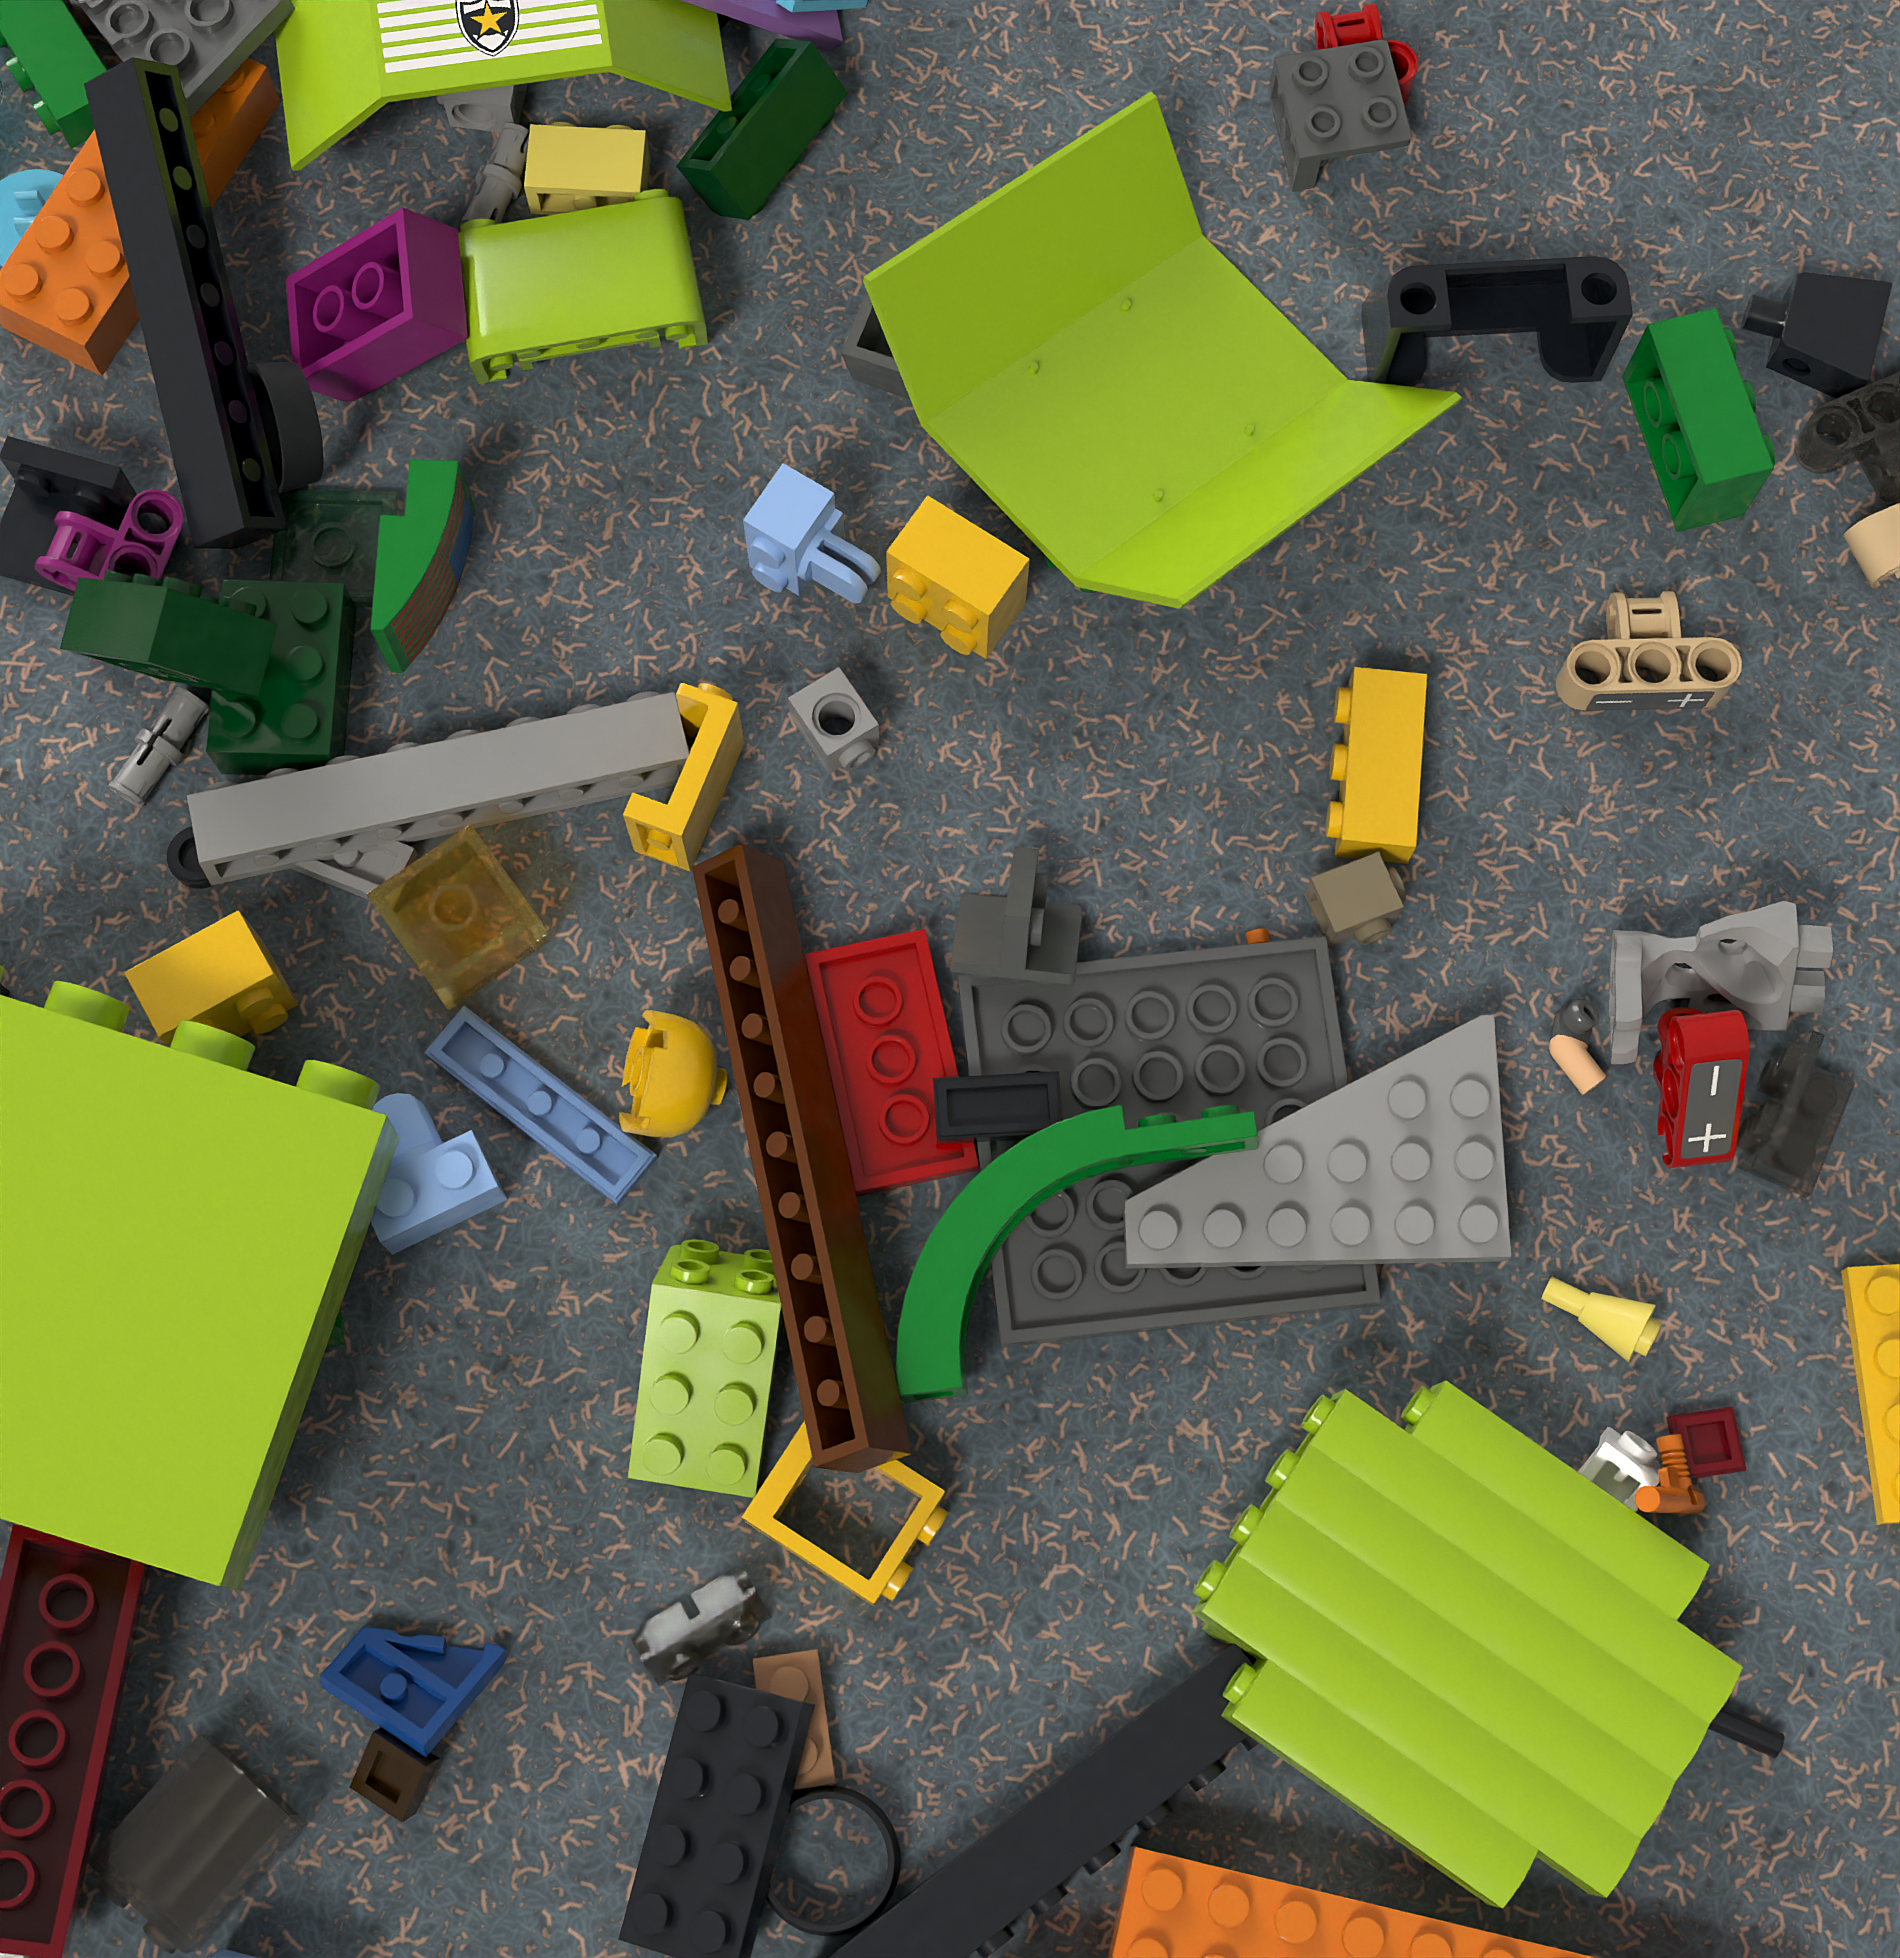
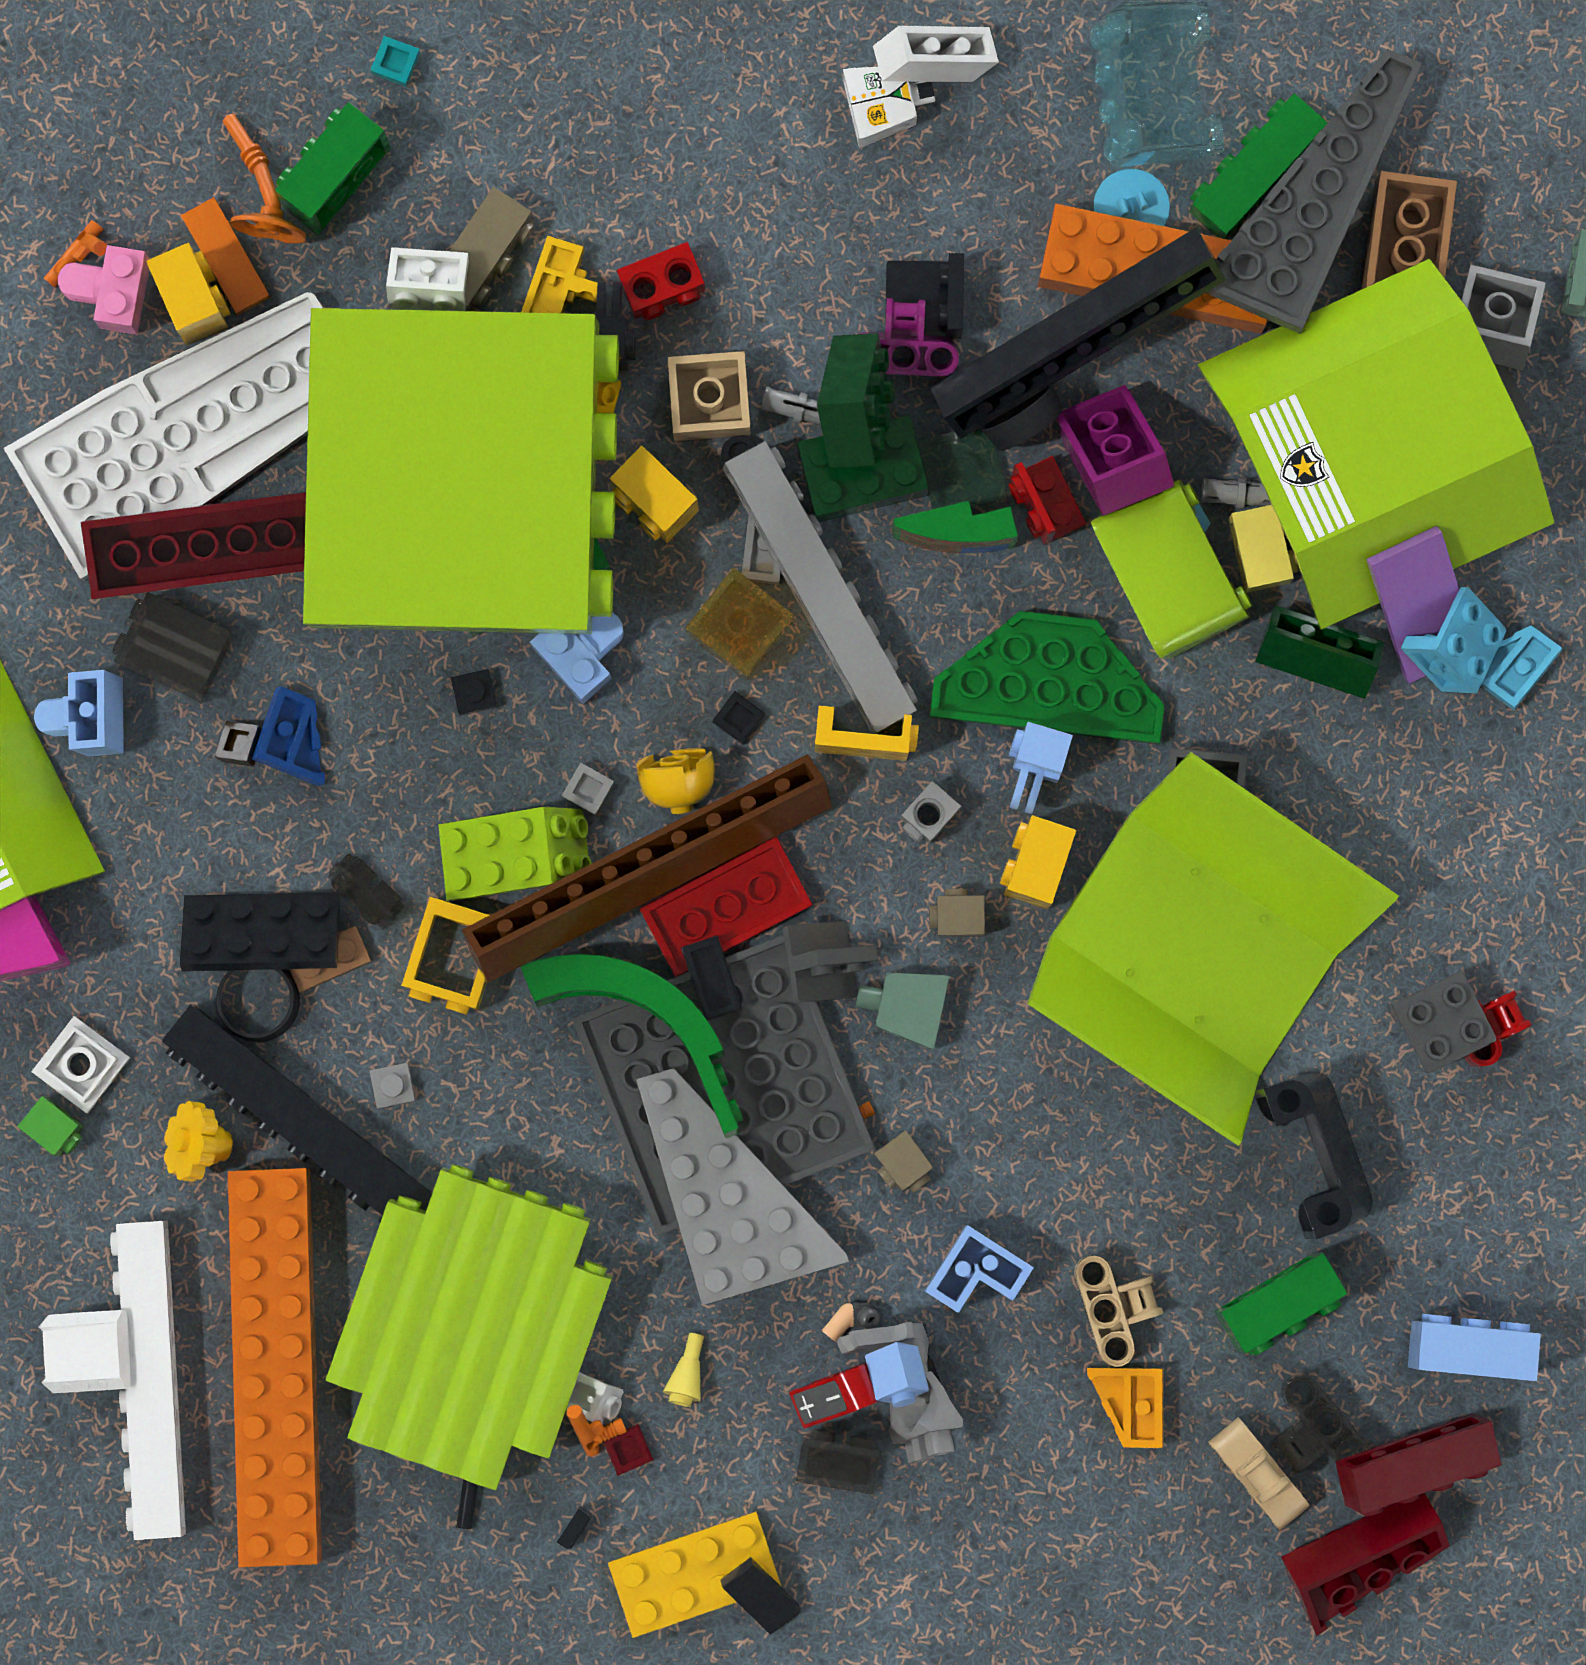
camera: 75 degrees right, 10 degrees up
(89, 869) = (709, 396): none -> tan brick
(420, 431) = (1047, 499): none -> red bracket
(433, 1364) = (473, 692): none -> black plate
(541, 1105) = (643, 706): medium blue tile -> none
(603, 967) = (738, 717): none -> black tile
(643, 1223) = (588, 789): none -> light grey plate
(672, 504) = (1052, 675): none -> green plate
(1000, 721) = (958, 914): none -> dark tan brick
(1030, 1668) = (392, 1085): none -> light grey plate
(1120, 830) = (907, 1006): none -> sand green torso
(1378, 764) = (995, 1154): yellow brick -> none
(1536, 837) = (976, 1259): none -> light blue brick
(1699, 974) = (897, 1374): none -> light blue brick
(1794, 672) = (1133, 1403): none -> light orange wing
(1819, 181) = (1474, 1348): none -> light blue brick
(1820, 1560) = (574, 1528): none -> black tile
(1823, 330) = (1377, 1374): black torso -> none

